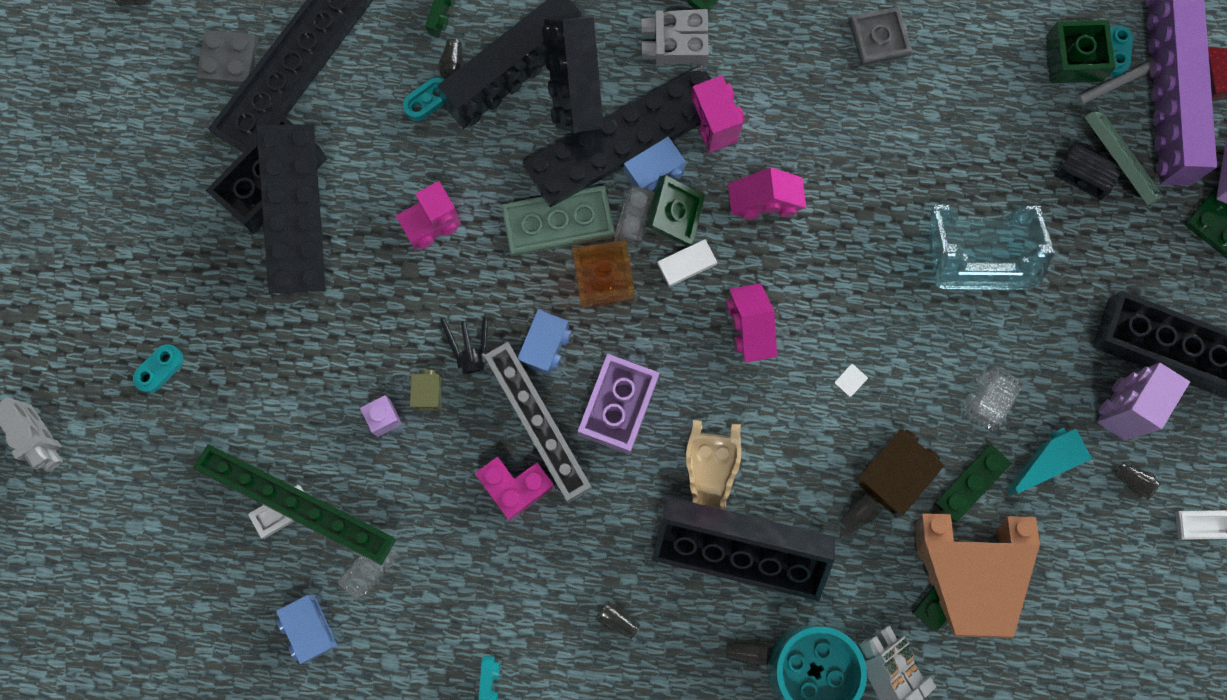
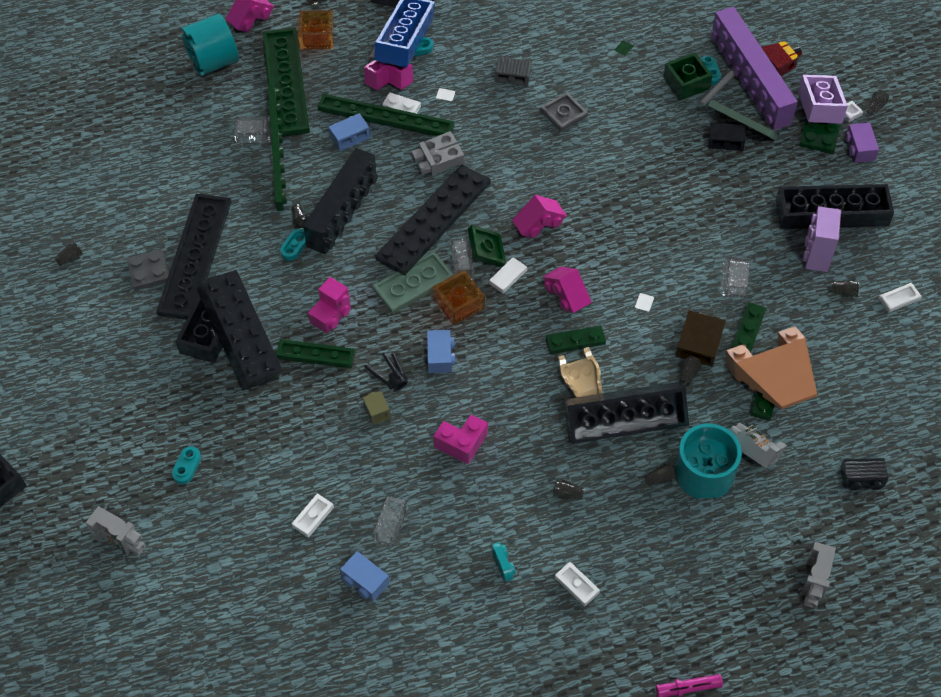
camera: 20 degrees left, 20 degrees down
(295, 504) = (321, 499): dark green plate -> none
(381, 416) = (354, 431): lavender brick -> none
(384, 276) = (315, 353): none -> dark green plate
(538, 422) = (459, 394): light grey brick -> none
(573, 73) = (386, 188): black brick -> none
(618, 404) = (506, 365): lavender brick -> none
(656, 161) = (458, 226): medium blue brick -> none
(718, 114) = (487, 182): dark pink brick -> none
(732, 399) = (575, 339): none -> dark green plate
(990, 252) = (692, 202): clear light blue windscreen -> none
(1052, 458) = (791, 293): teal slope -> none

